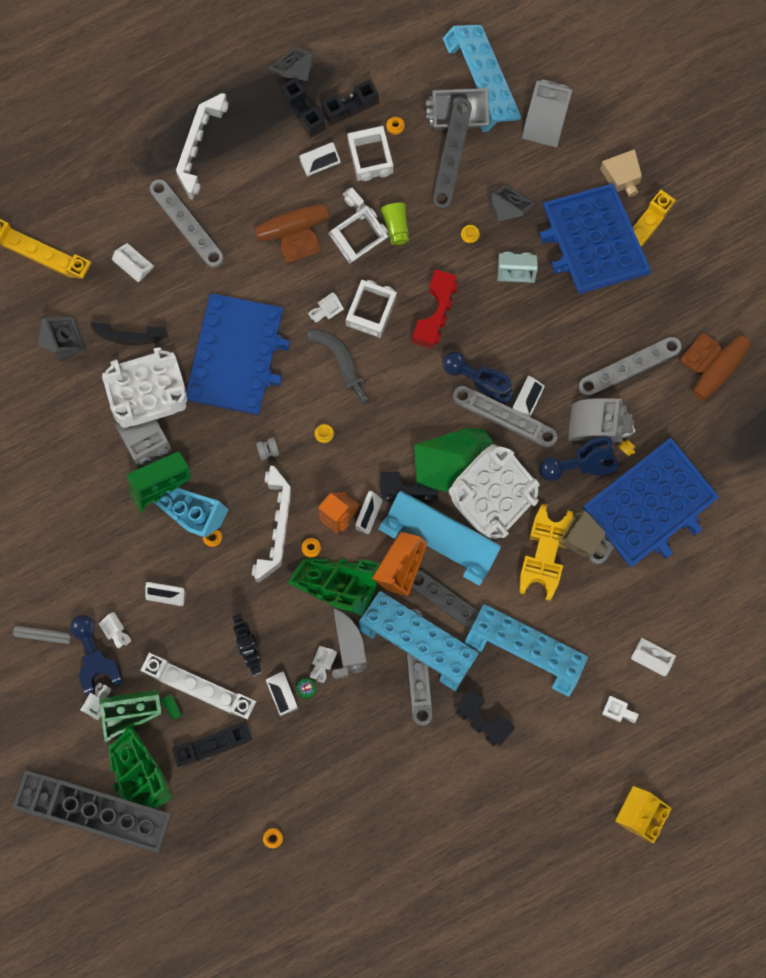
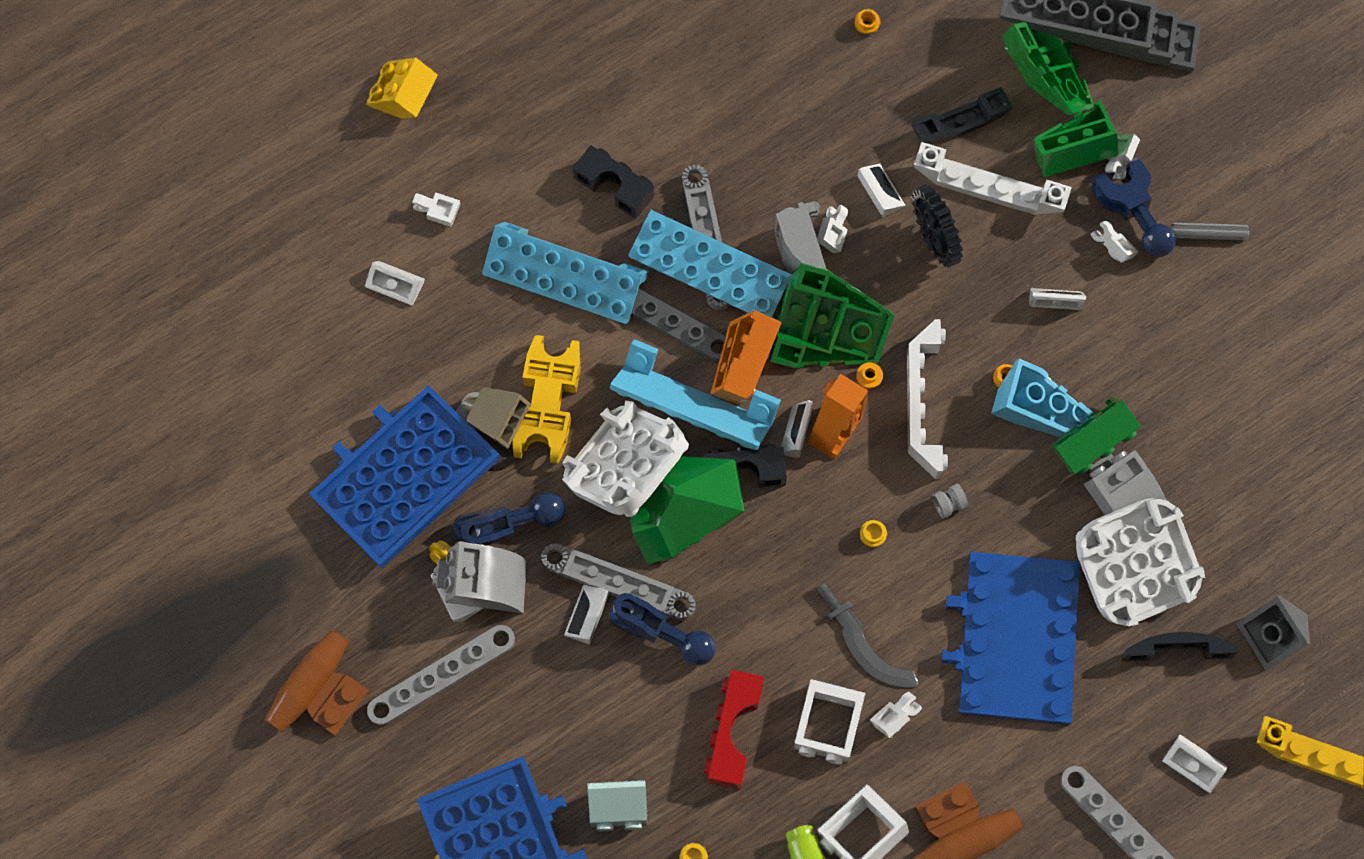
camera: 175 degrees right, 5 degrees down
(172, 707) = (1021, 158): green pin -> none
(306, 688) = (851, 198): green tile -> none

